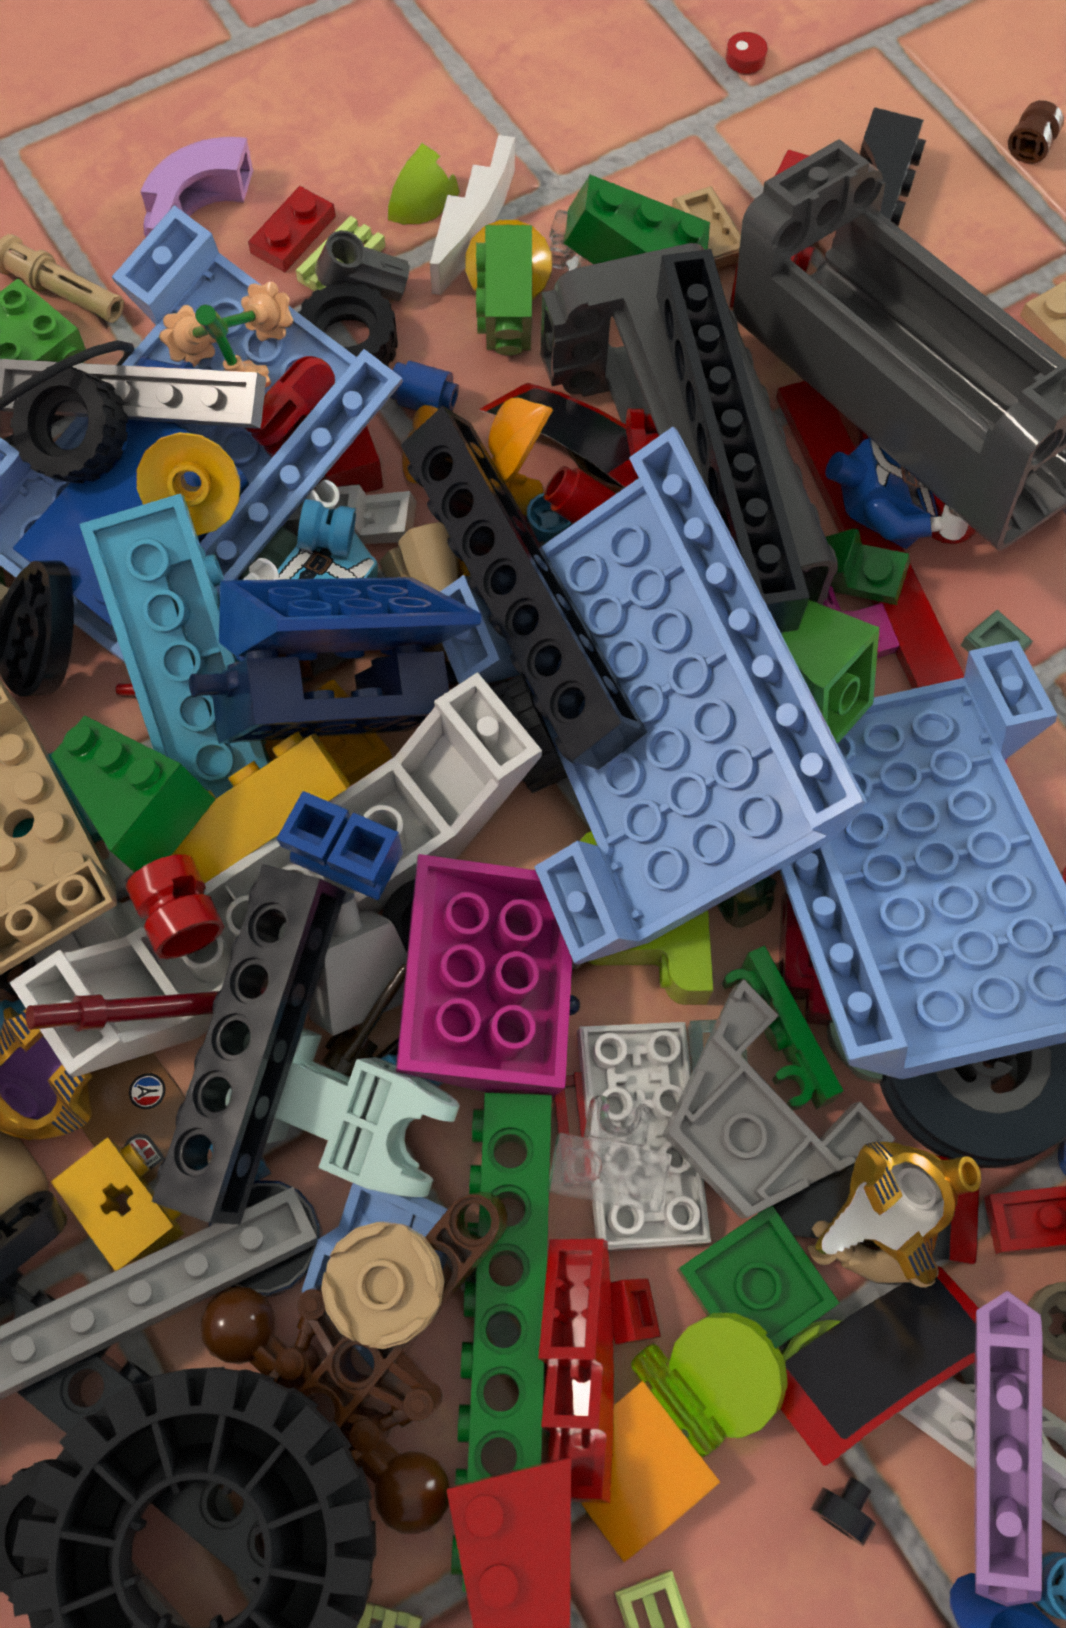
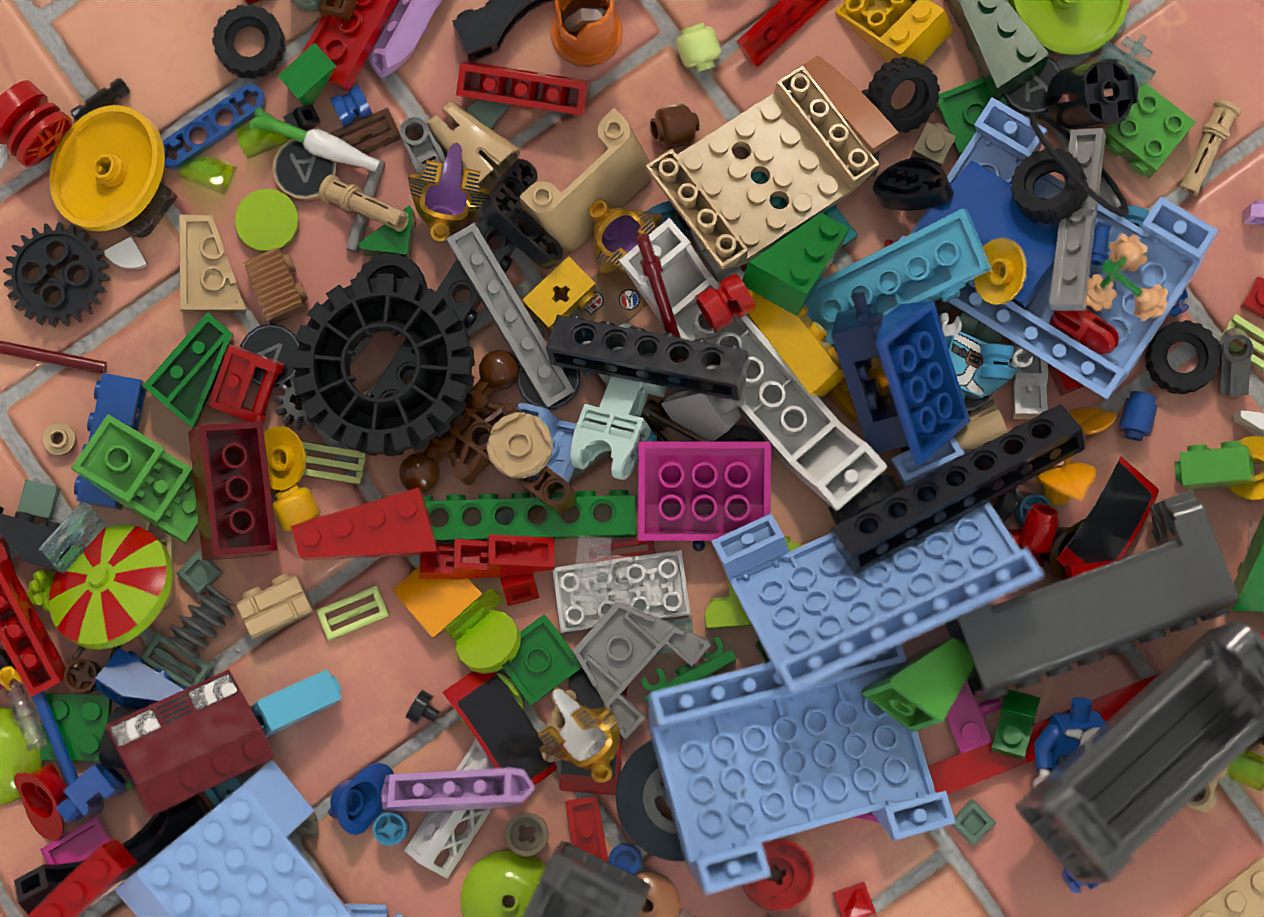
camera: 90 degrees right, 15 degrees up
(341, 846) = (765, 395): blue hips -> none
(729, 430) = (1059, 614): black brick -> none

